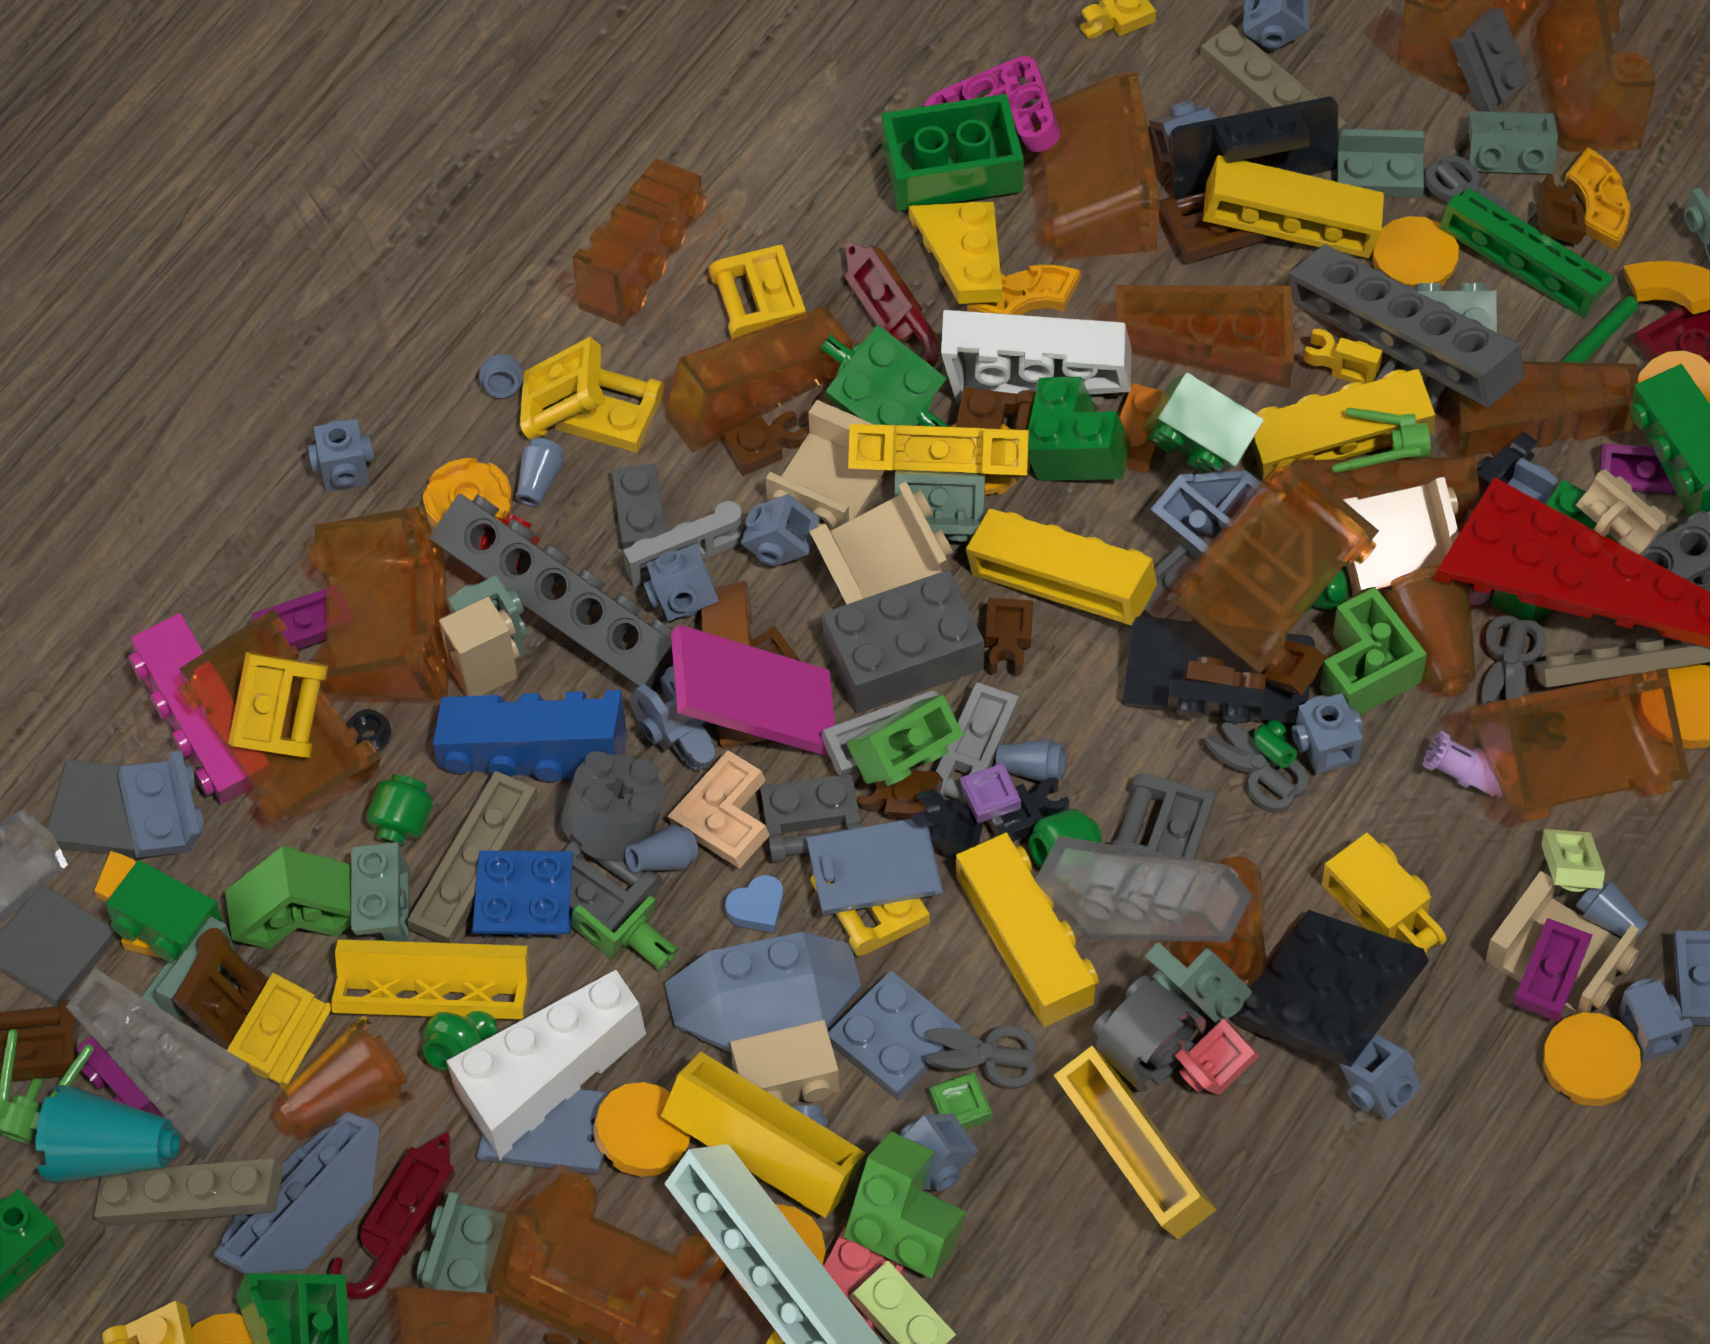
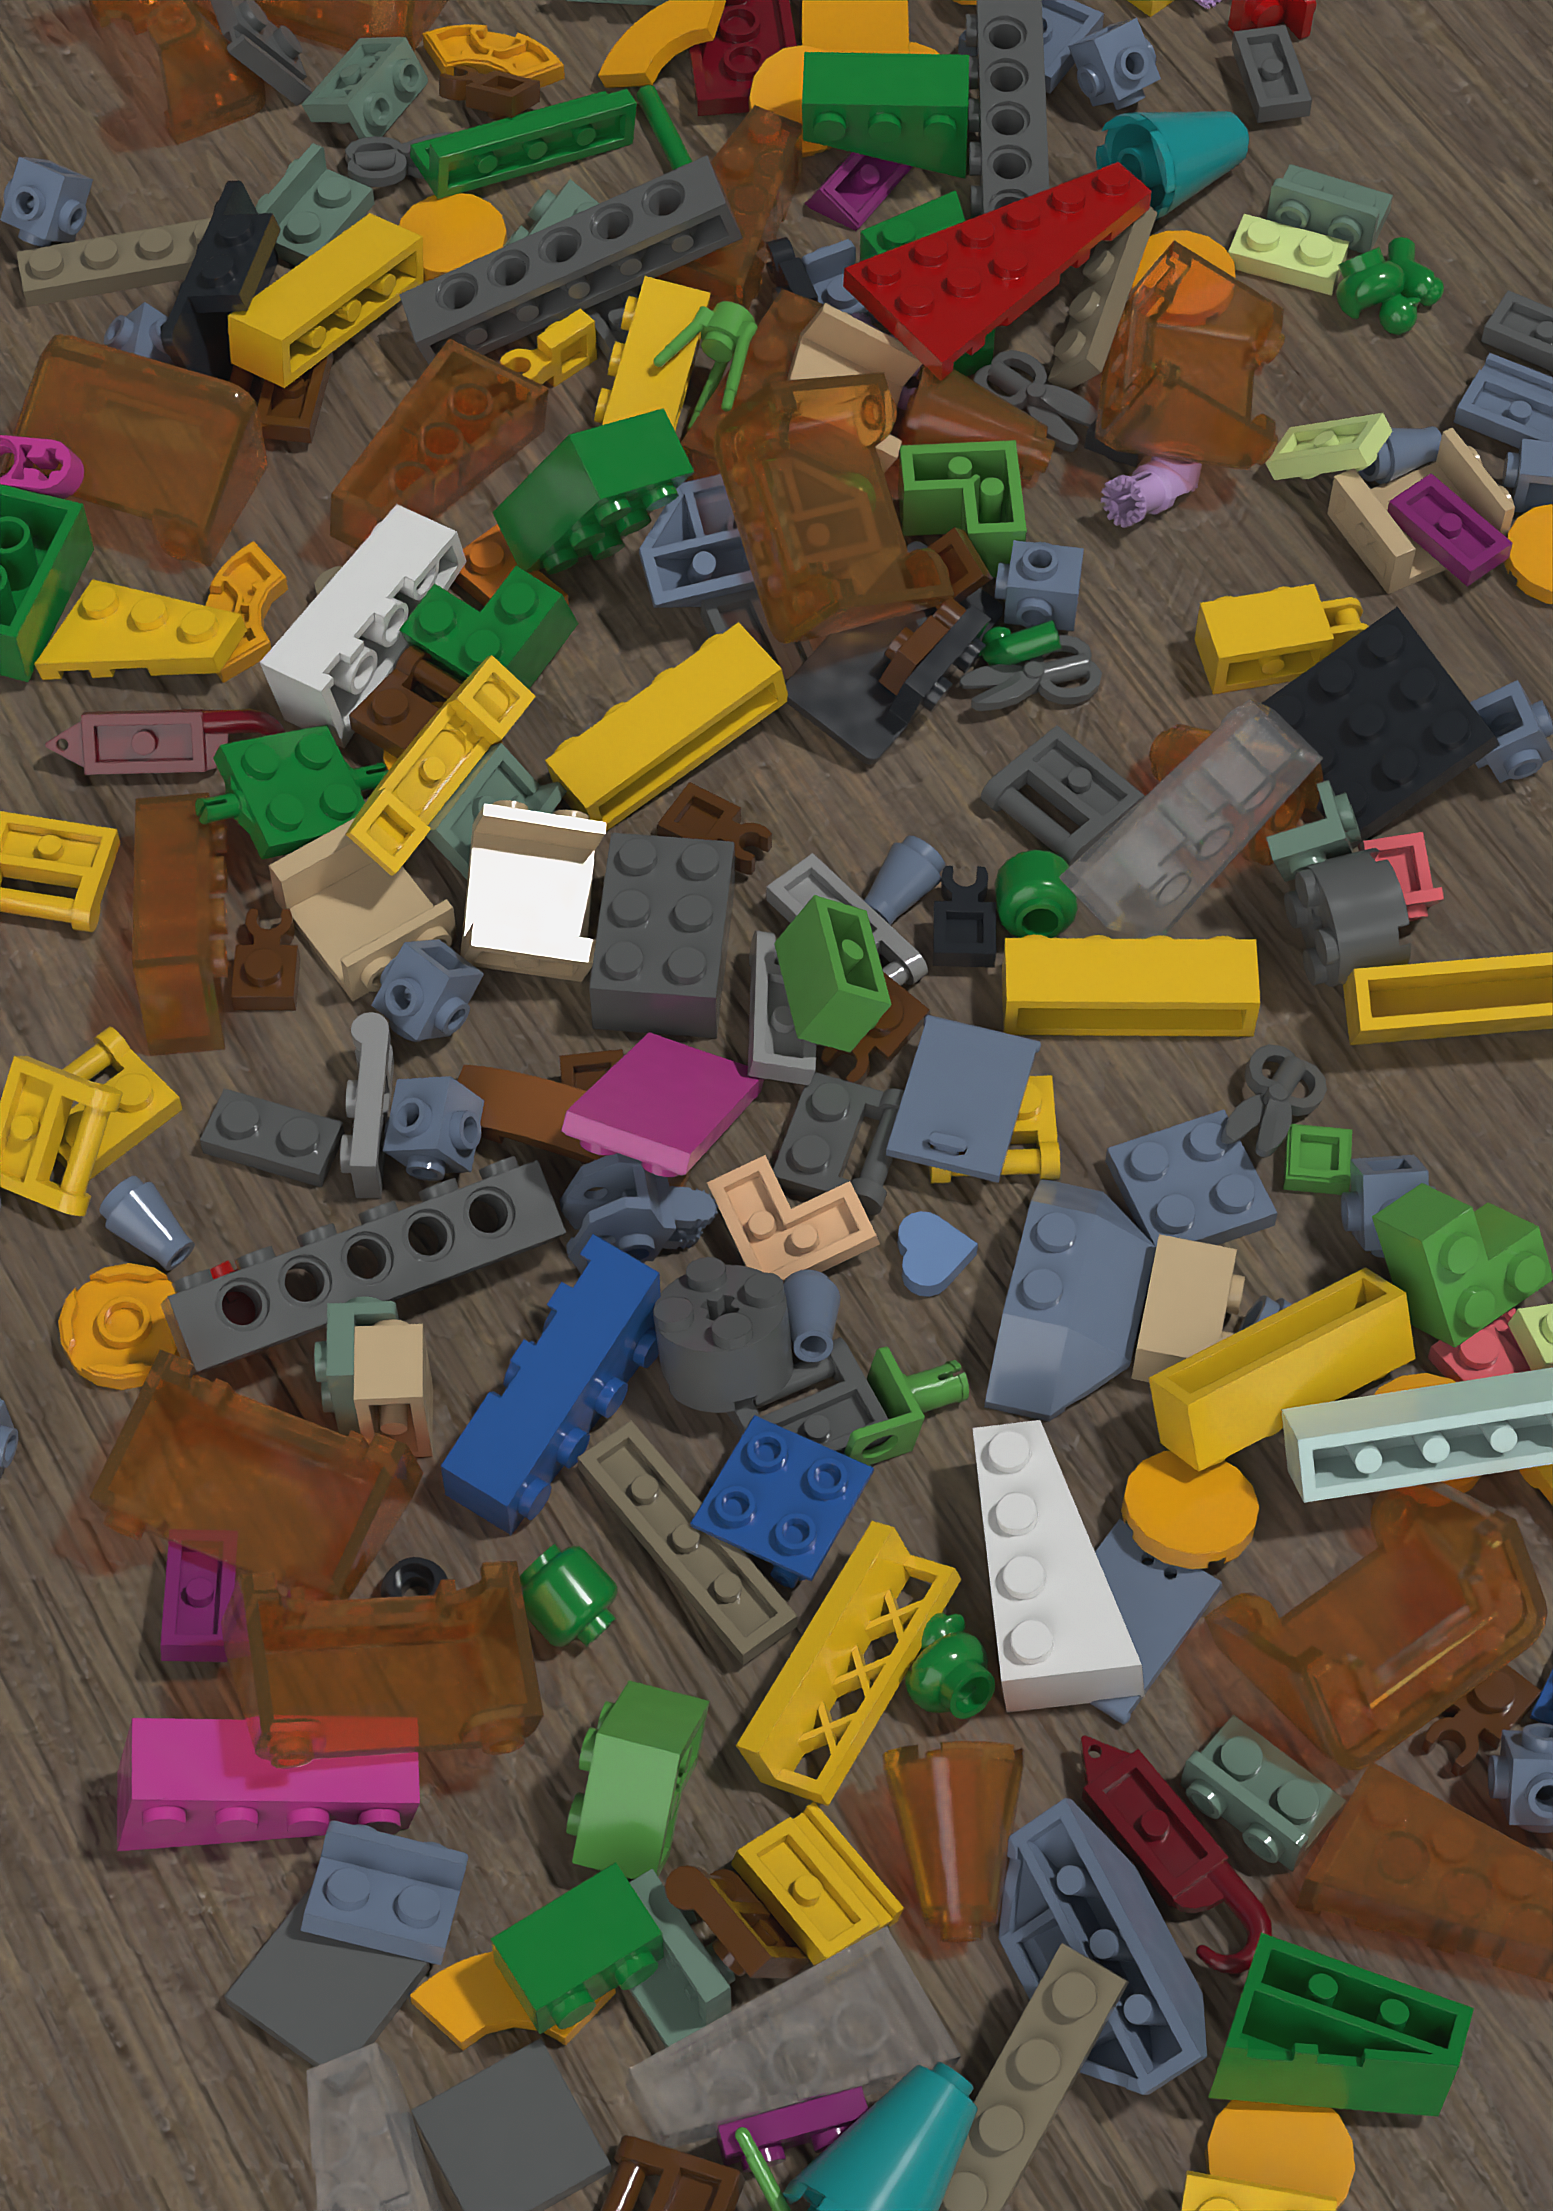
camera: 65 degrees left, 0 degrees up
(264, 702) = (360, 1654): yellow plate -> none
(380, 892) = (693, 1664): sand green bracket -> none
(951, 823) = (953, 997): black plate -> none
(990, 793) = (934, 935): medium lavender tile -> none
(1621, 512) = (954, 189): tan hips -> none

